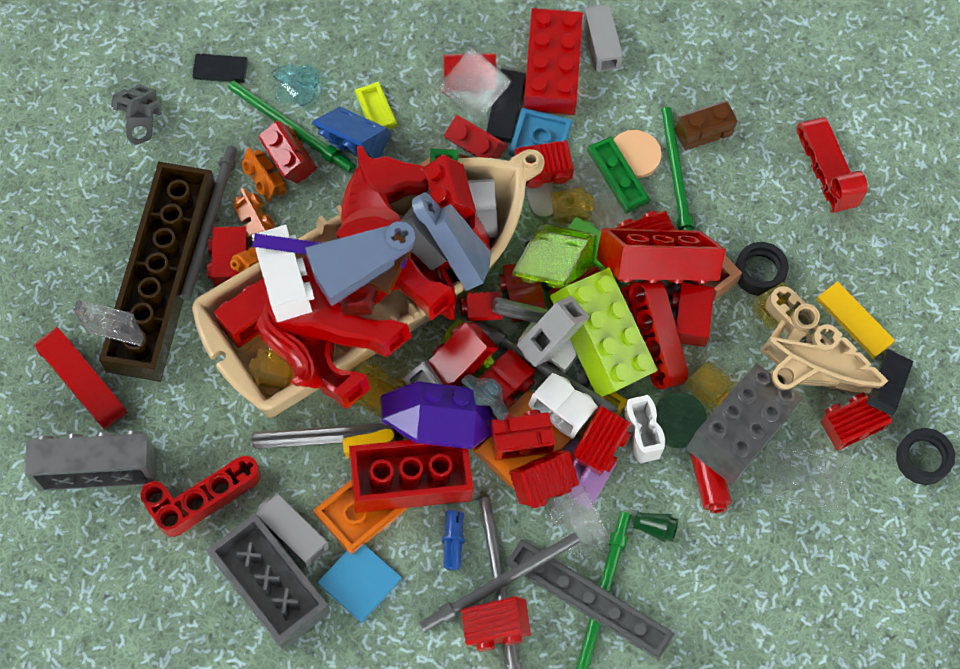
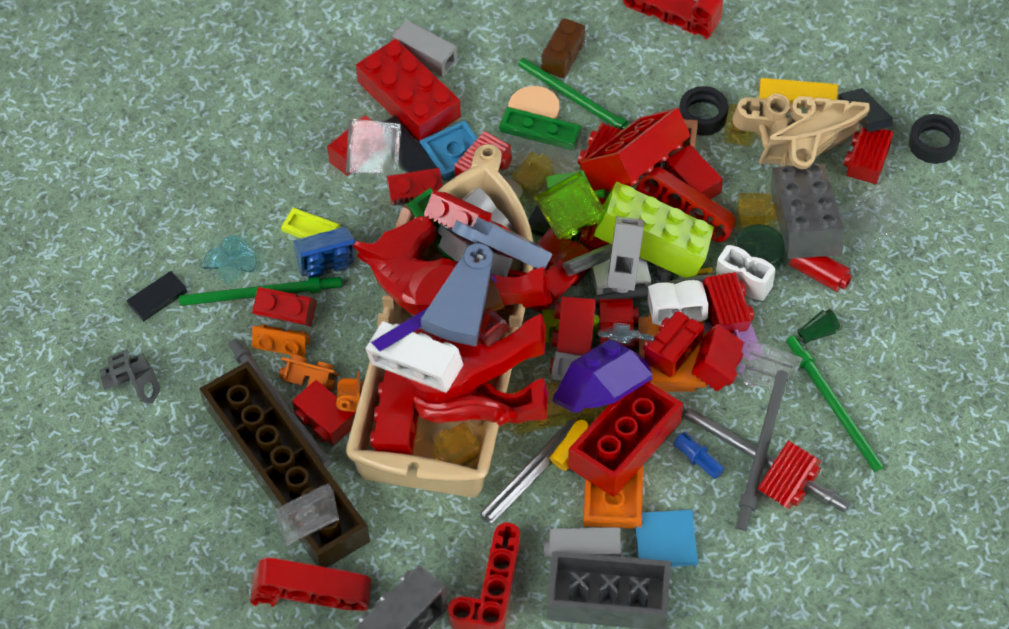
camera: 40 degrees left, 10 degrees down
(595, 602) = (834, 407): dark grey tile -> none

